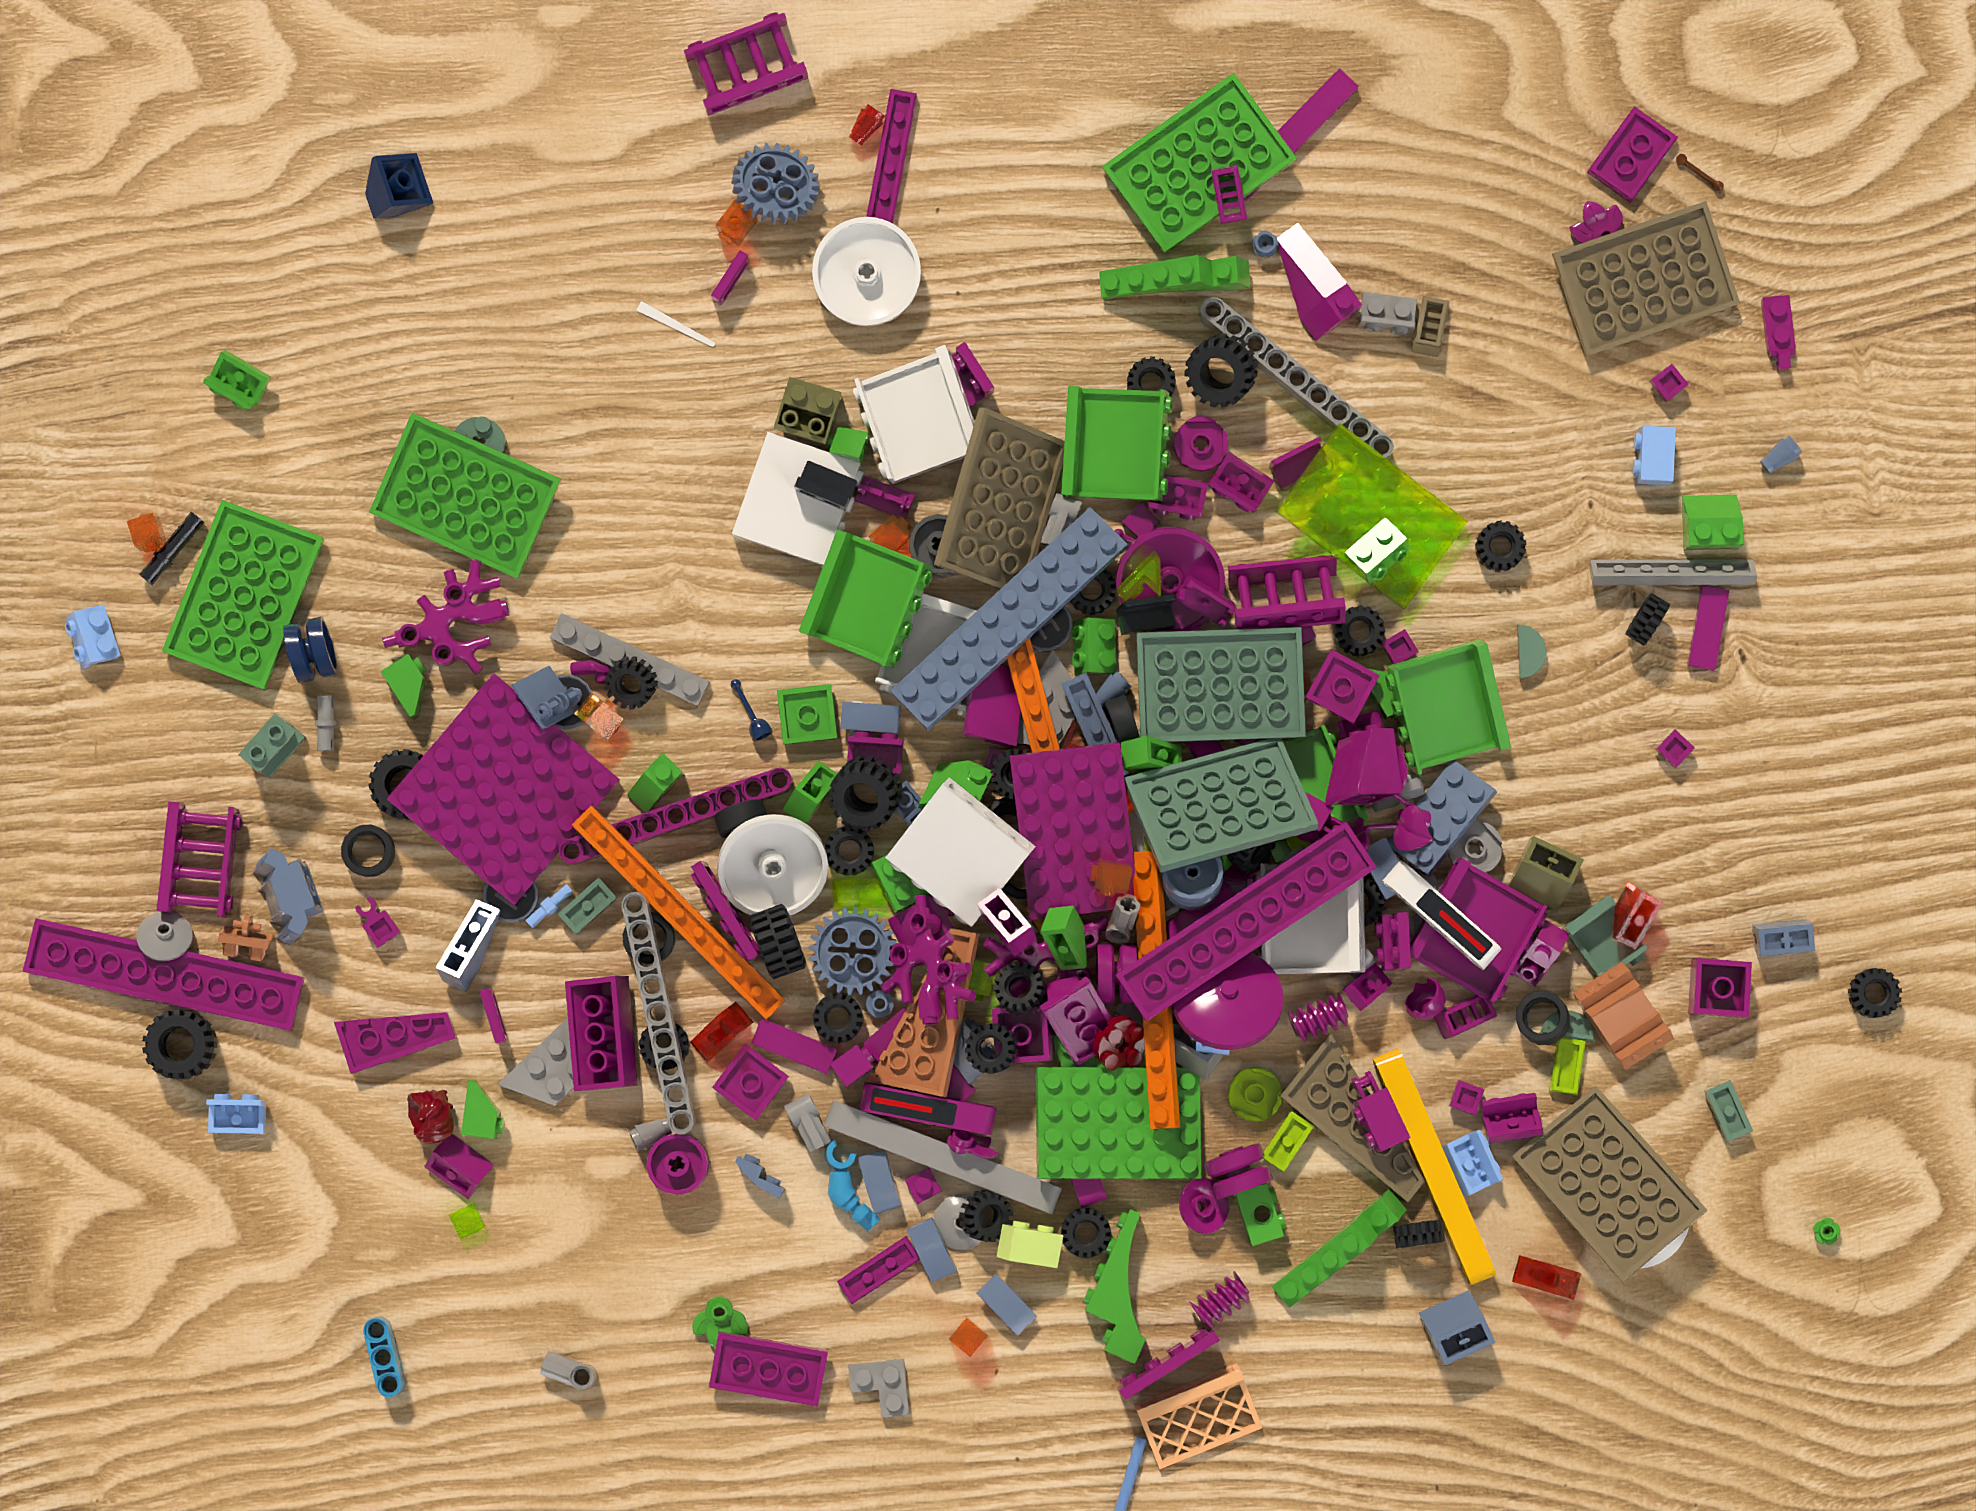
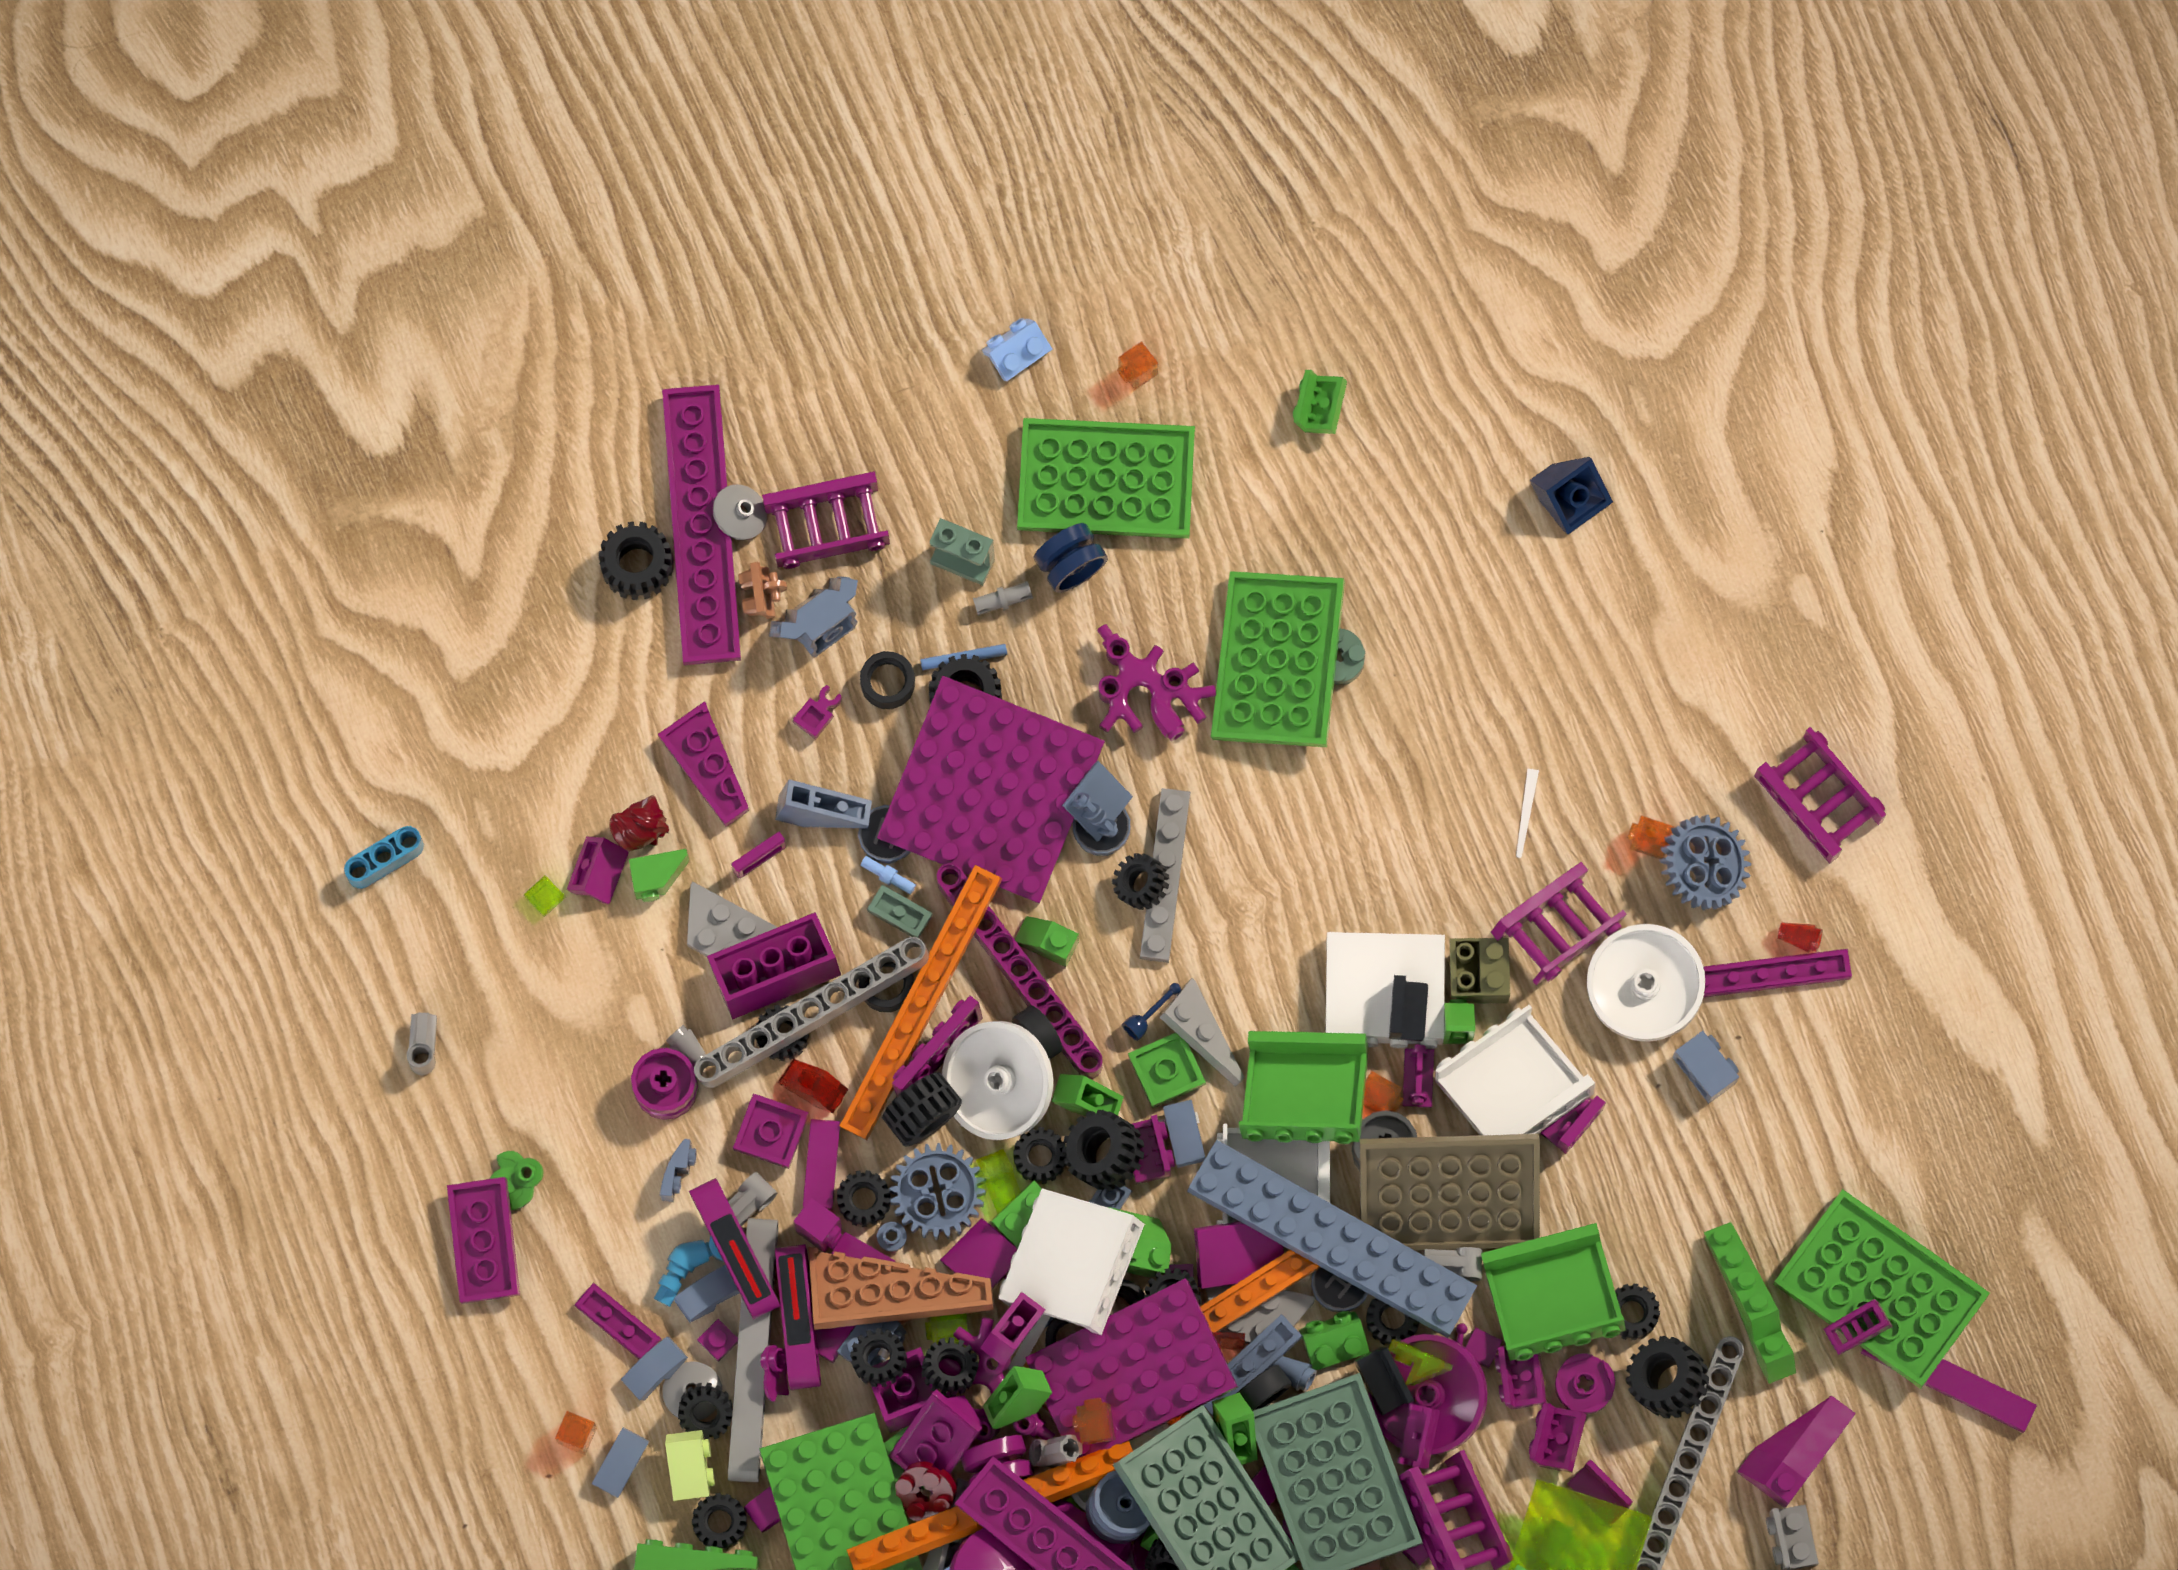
camera: 75 degrees right, 10 degrees down
(168, 552) = (1120, 391): black pin -> none
(236, 1115) = (582, 638): light blue bracket -> none
(370, 760) = (983, 653): none -> medium blue bar
(407, 683) = (1068, 664): bright green slope -> none
(590, 667) = (1143, 835): magenta arm -> none
(600, 716) = (1096, 862): clear orange brick -> none
(730, 278) = (1592, 849): magenta tile -> none
(774, 347) = (1553, 897): none -> magenta fence
(775, 676) = (1195, 1024): none -> light grey wing
(850, 1146) = (734, 1248): none -> beam
(886, 1377) = (509, 1364): light grey plate -> none
(940, 972) = (939, 1280): magenta plant -> none
(956, 245) = (1706, 1066): none -> sand blue brick
(1270, 239) = (1824, 1378): sand blue plate -> none

